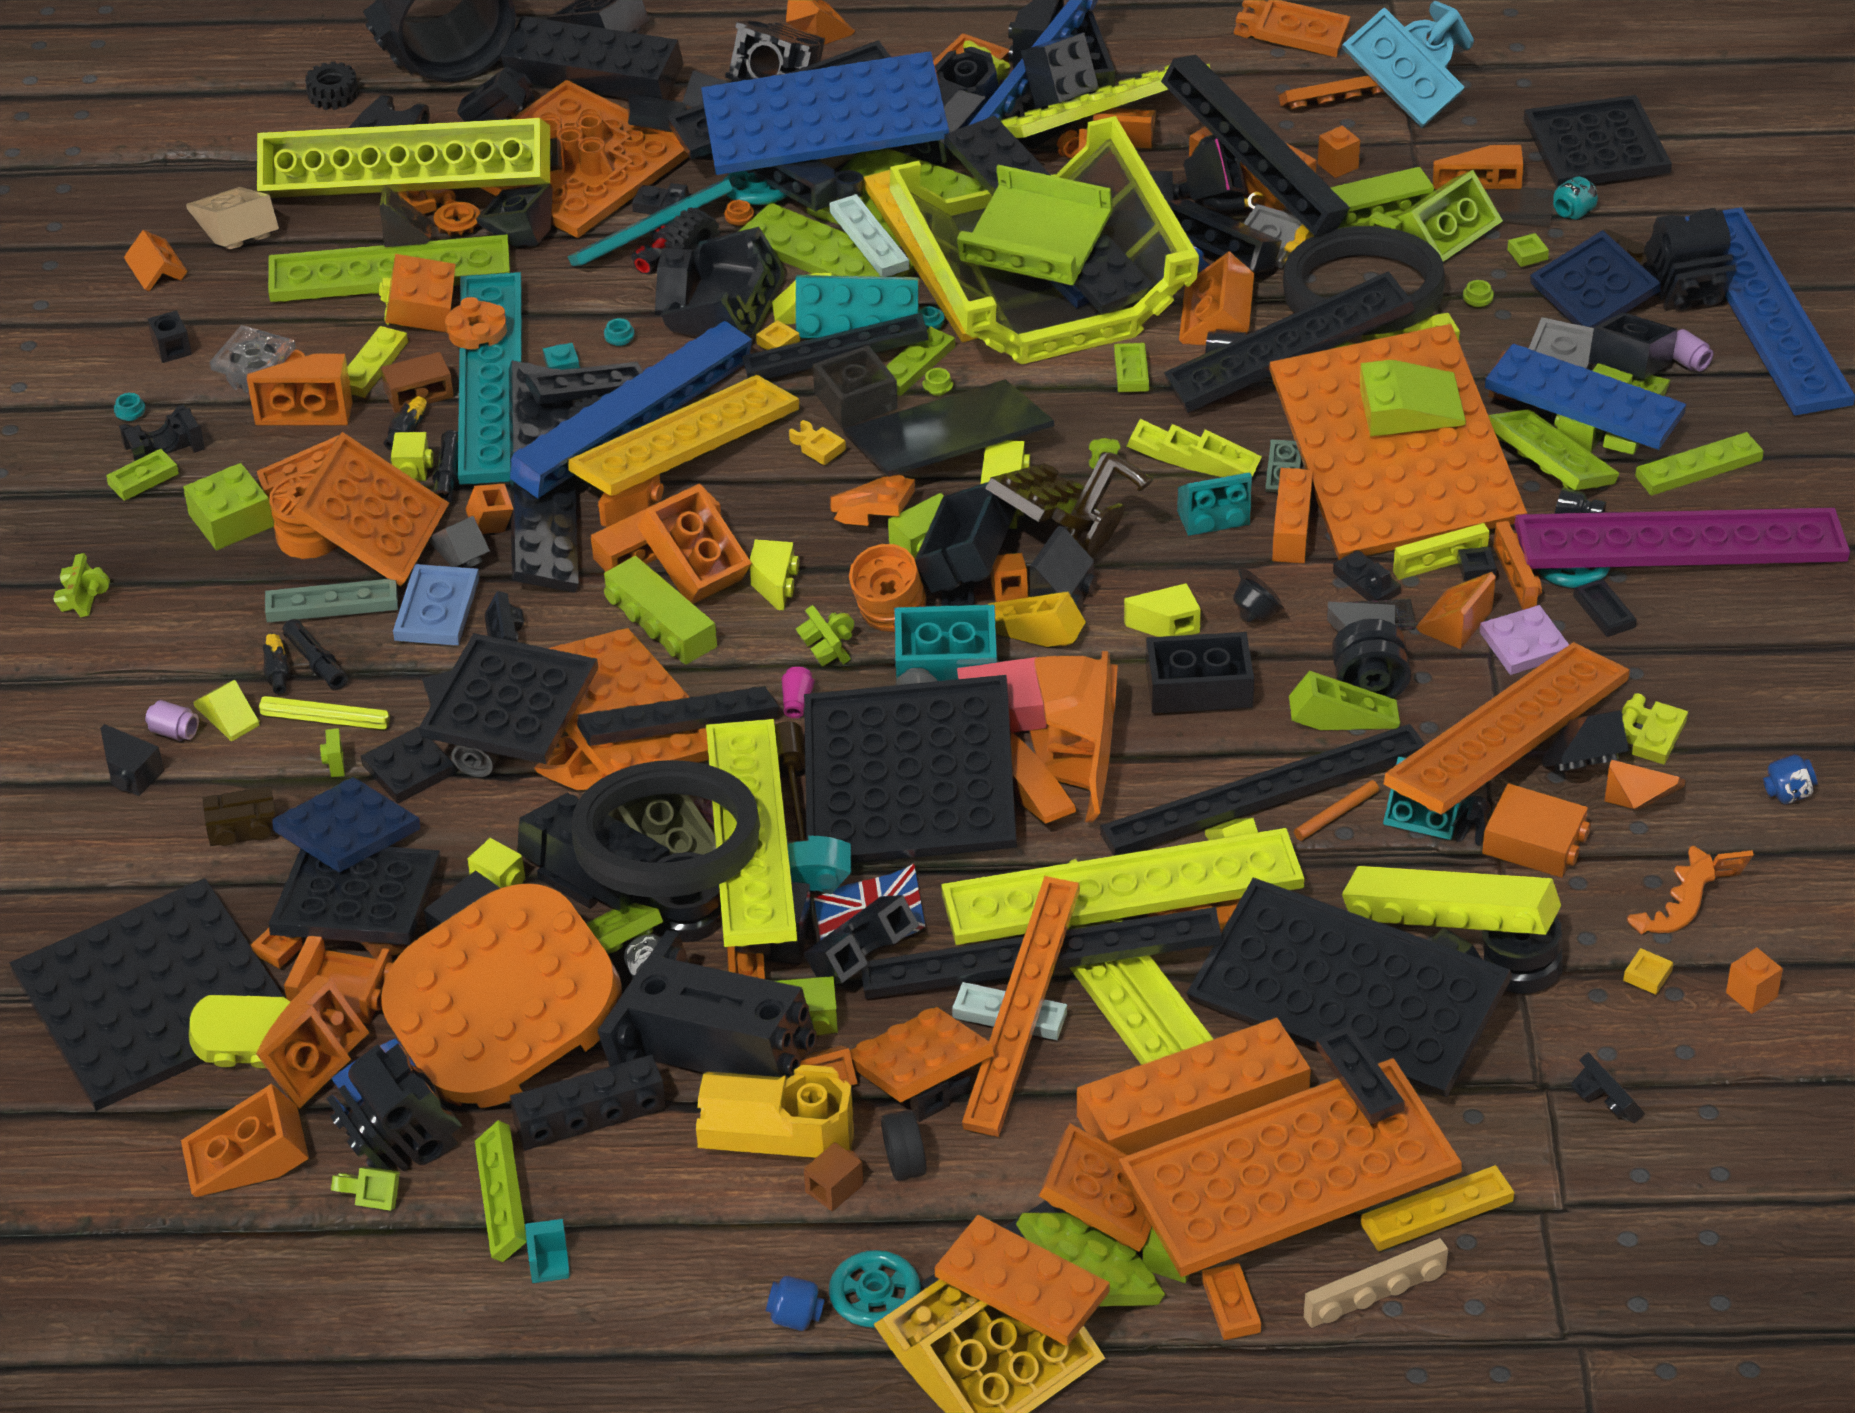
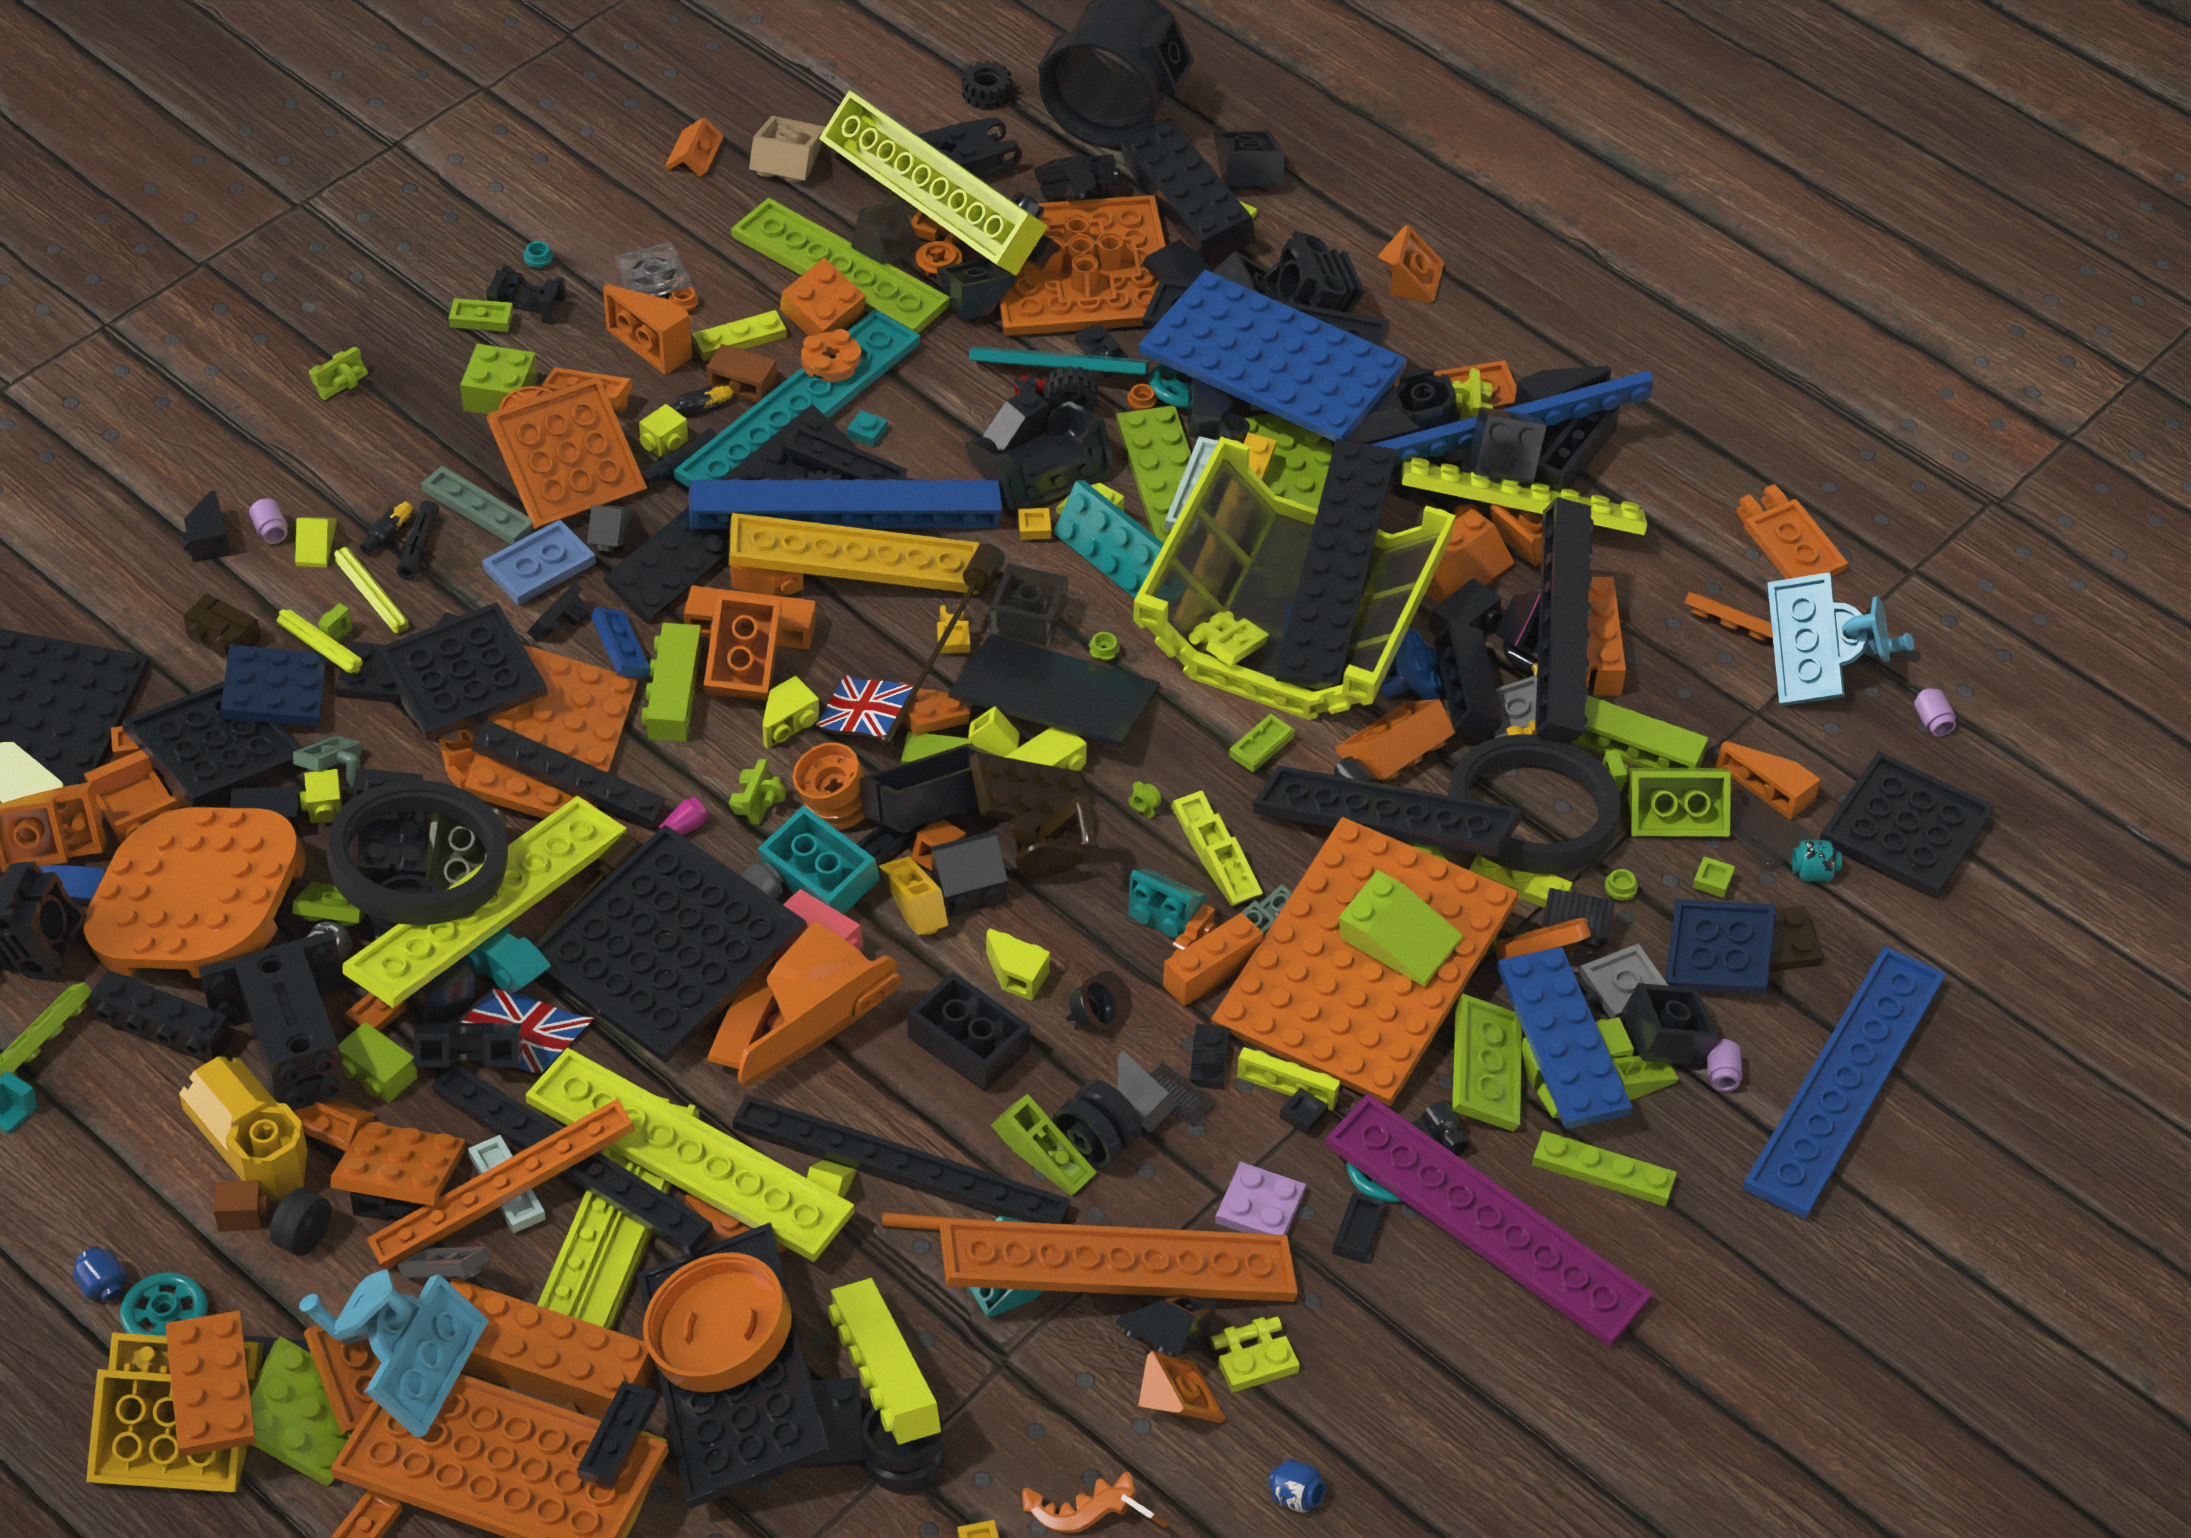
camera: 40 degrees right, 5 degrees up
(169, 336) = (627, 217): black brick -> none
(340, 769) = (319, 641): none -> neon yellow axle
(463, 835) = (329, 753): none -> sand green plate
(490, 507) = (655, 511): orange brick -> none
(583, 612) = (620, 643): none -> blue plate
(618, 332) = (931, 435): teal plate -> none
(802, 355) = (1055, 559): black plate -> none
(842, 518) = (878, 707): none -> flag
(919, 358) = (1101, 617): lime plate -> none
(949, 477) = (994, 733): none -> neon yellow brick
(1037, 307) = (1228, 638): none -> neon yellow plate
(1038, 225) = (1299, 570): lime panel -> none
(1056, 1083) = (445, 1261): none -> dark grey plate
(1129, 1107) = (416, 1340): none -> medium azure plate
(1258, 511) = (1196, 928): none -> orange plate
(1316, 959) = (717, 1322): none -> orange brick
(1338, 151) = (1669, 677): orange brick -> none
(1460, 611) = (1235, 1141): orange slope -> none
(1474, 811) = (1022, 1309): black piece -> none
(1486, 327) = (1566, 906): none -> black brick
(1491, 346) = (1543, 939): none -> orange beam
(1512, 558) = (1316, 1156): orange plate -> none
(1524, 66) = (1935, 712): none -> lavender brick
(1536, 830) = (1048, 1361): orange brick -> none
(1691, 259) = (1813, 985): black piece -> none

